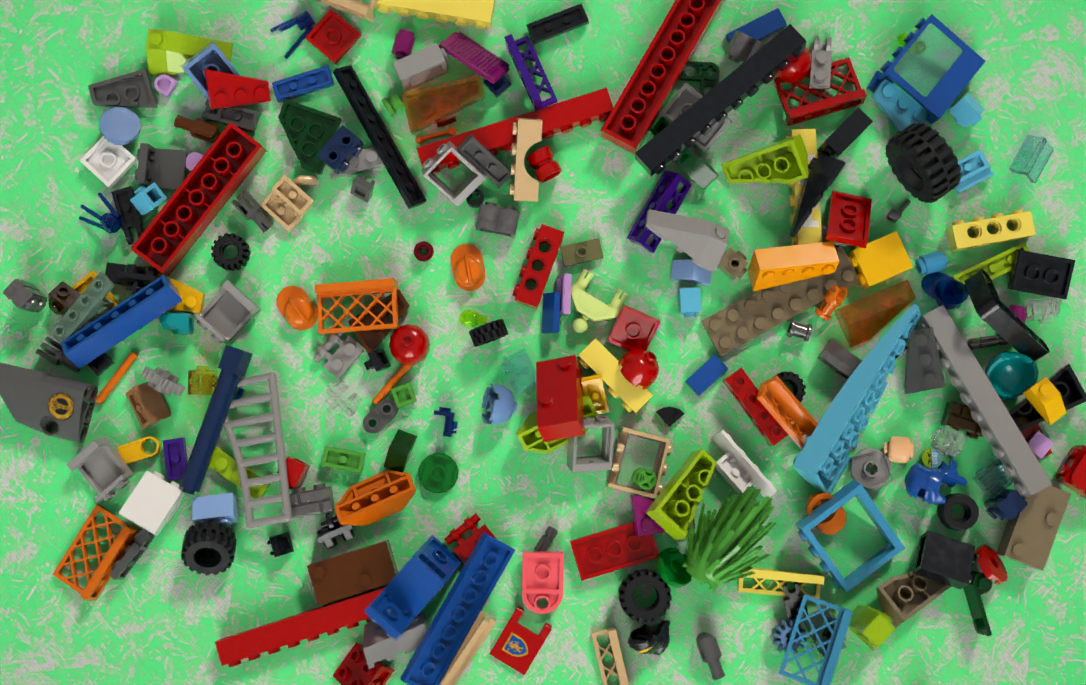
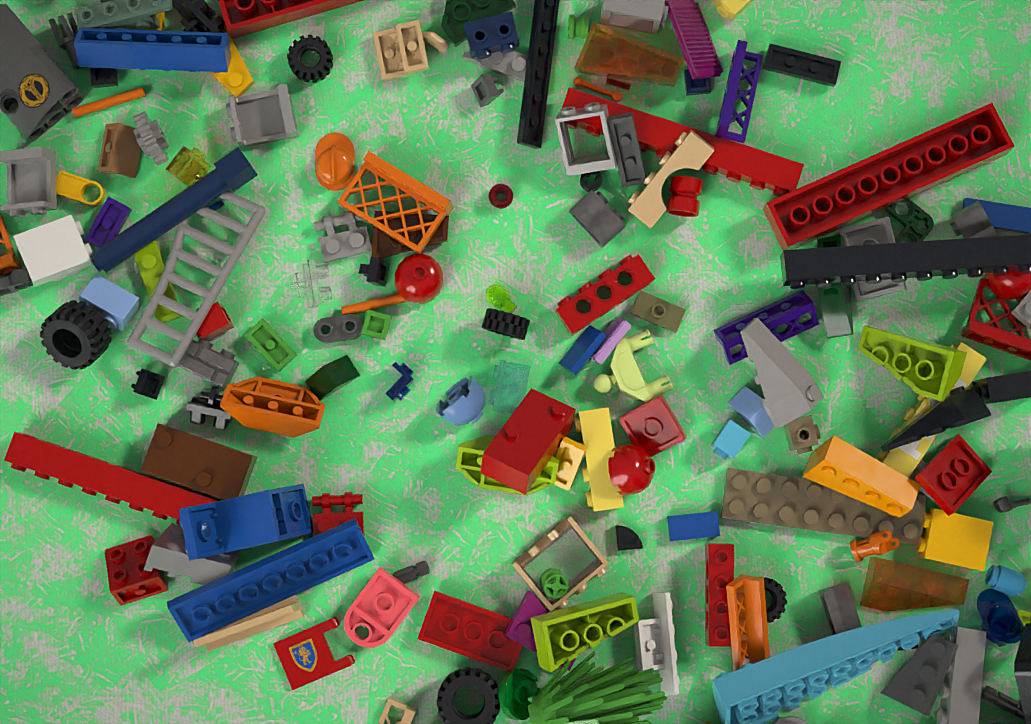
camera: 35 degrees right, 0 degrees up
(178, 323) = (207, 91): teal rock -> none
(252, 210) = (360, 32): dark grey arm -> none
(438, 473) = (354, 427): green tile -> none
(468, 267) = (533, 244): orange piece -> none
(593, 463) = (516, 531): light grey window -> none
(799, 330) = (820, 550): dark grey bush -> none

